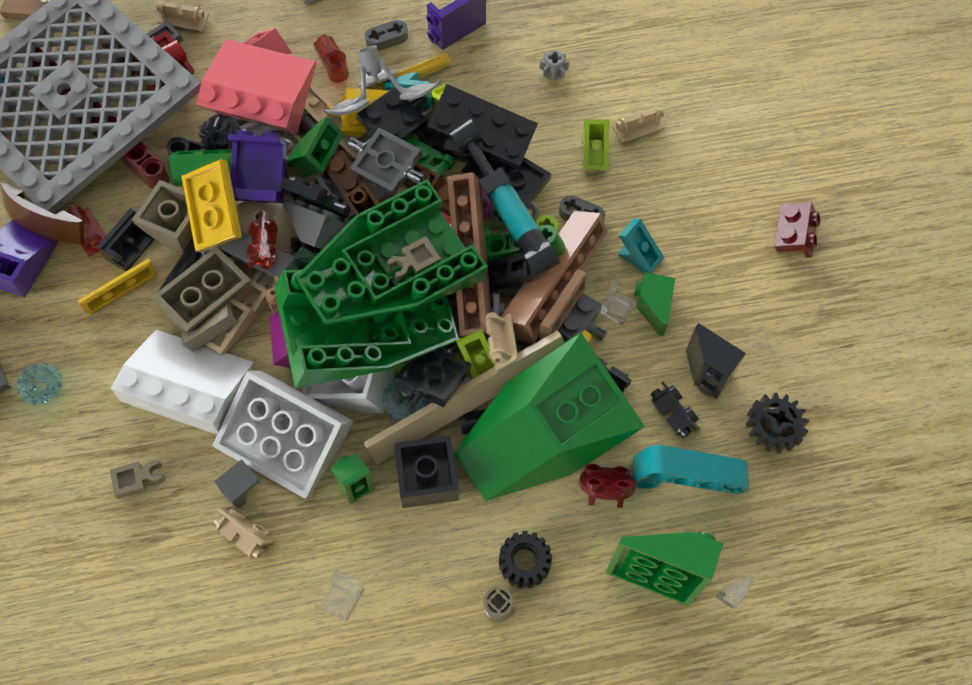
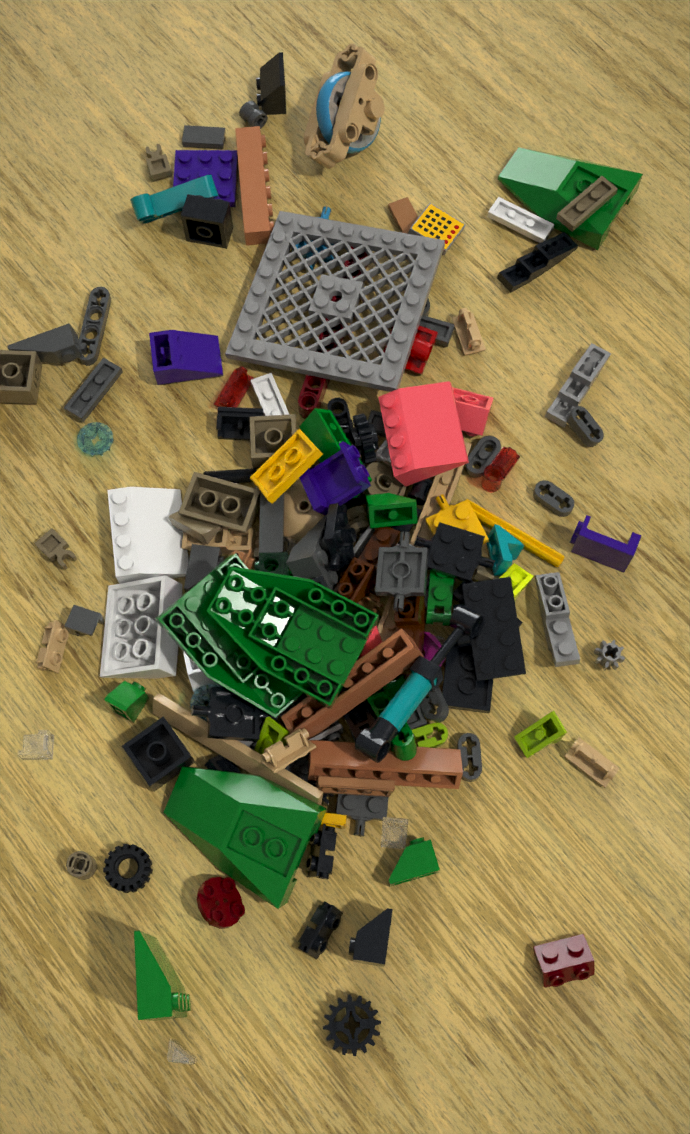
camera: 65 degrees right, 5 degrees up
(57, 226) = (219, 370): reddish brown slope -> none
(116, 202) = (269, 395): none -> white plate
(117, 287) = (199, 440): yellow slope -> none
(254, 343) = (201, 563): none -> dark grey slope
(258, 251) = (269, 524): clear red hinge -> none
(309, 52) = (481, 457): none -> dark grey plate
(372, 65) = (489, 508): light grey plant -> none
(415, 257) = (306, 647): dark tan plate -> none
(496, 87) = (556, 620): none -> light grey slope
(639, 247) = (459, 825): teal slope -> none
(689, 468) = (266, 970): teal beam -> none

